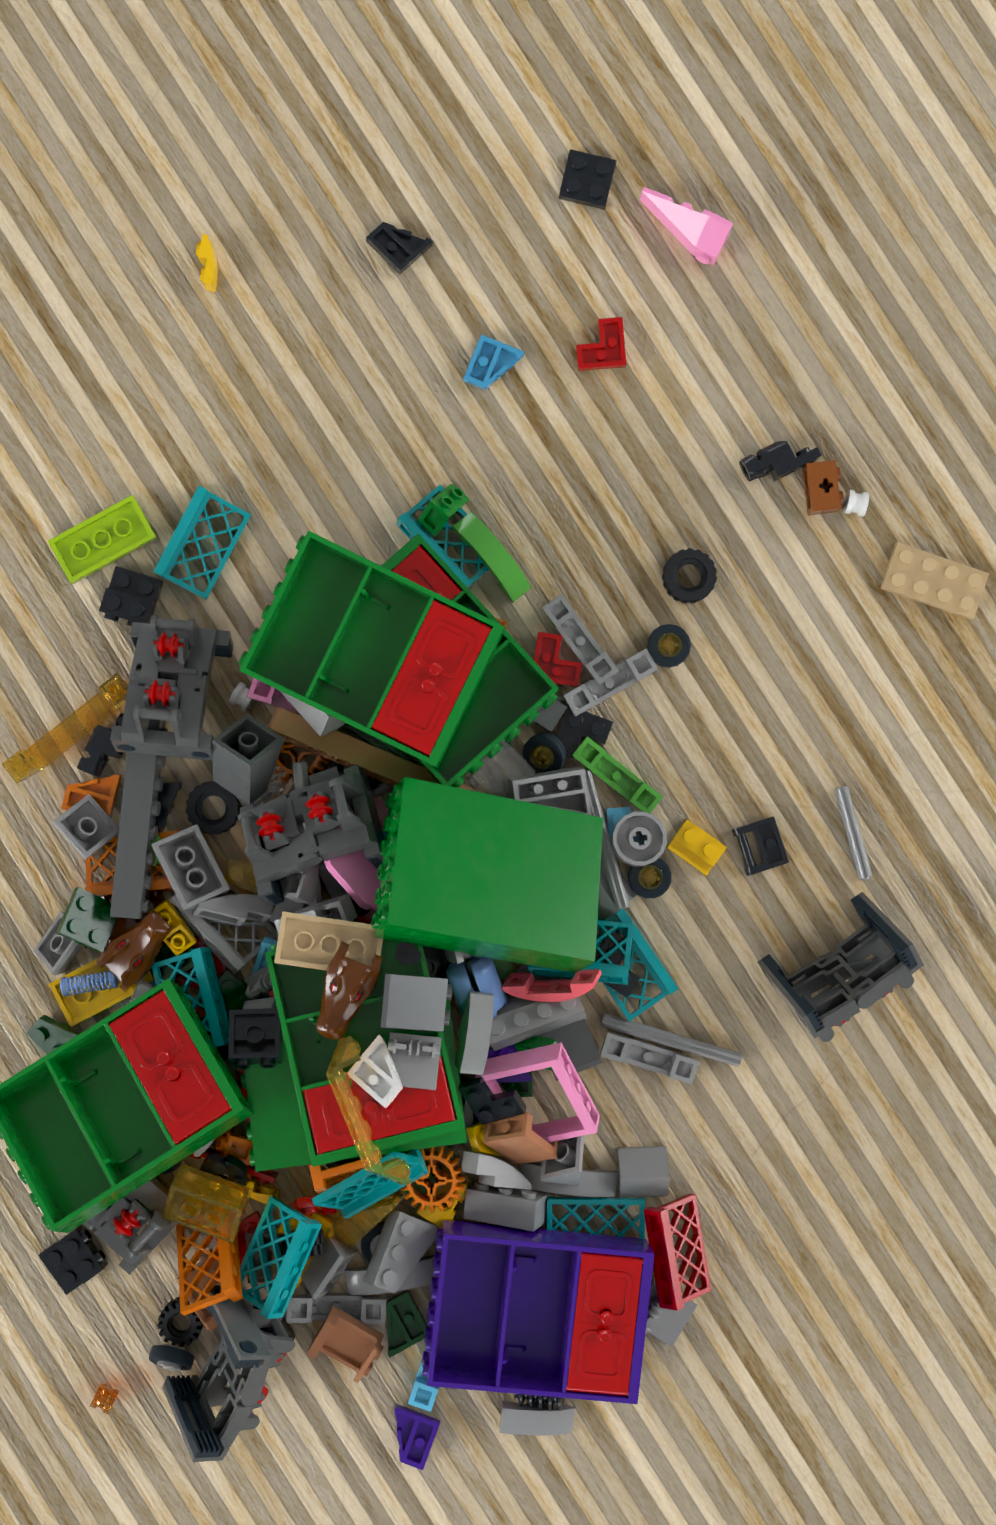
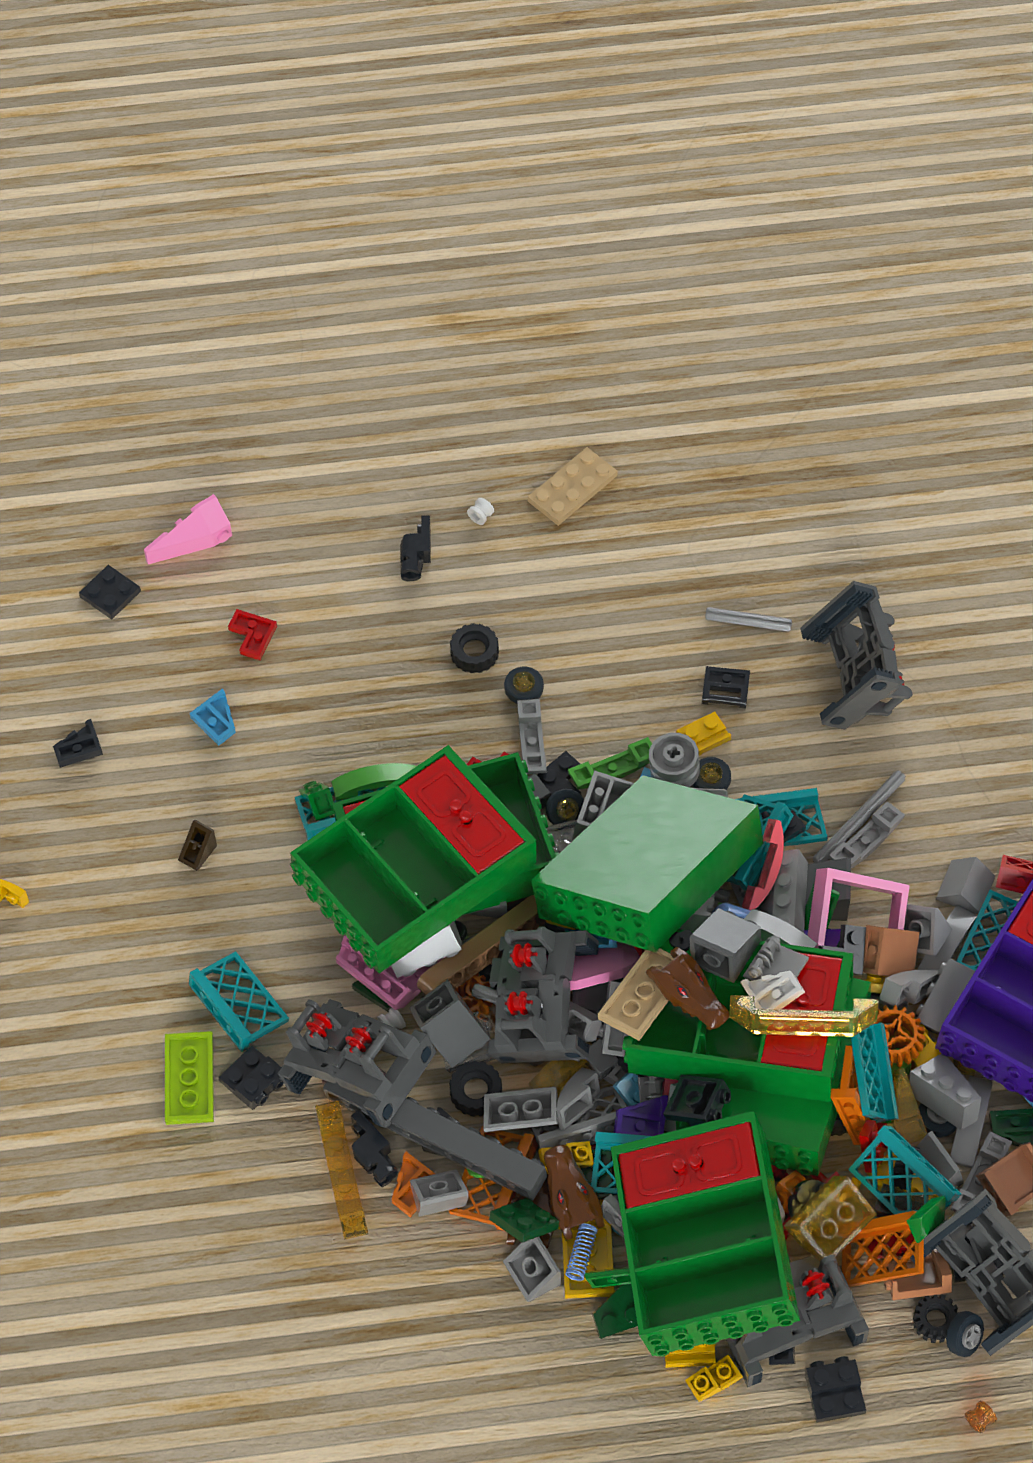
camera: 65 degrees left, 30 degrees down
(74, 1016) = (608, 1277): none -> green slope
(233, 1300) = (927, 1218): none -> green slope
(234, 983) = (642, 1118): none -> dark purple wing
(340, 420) = (198, 845): none -> dark brown slope
(580, 640) = (492, 746): light grey slope -> none
(817, 499) = (455, 529): dark orange brick -> none

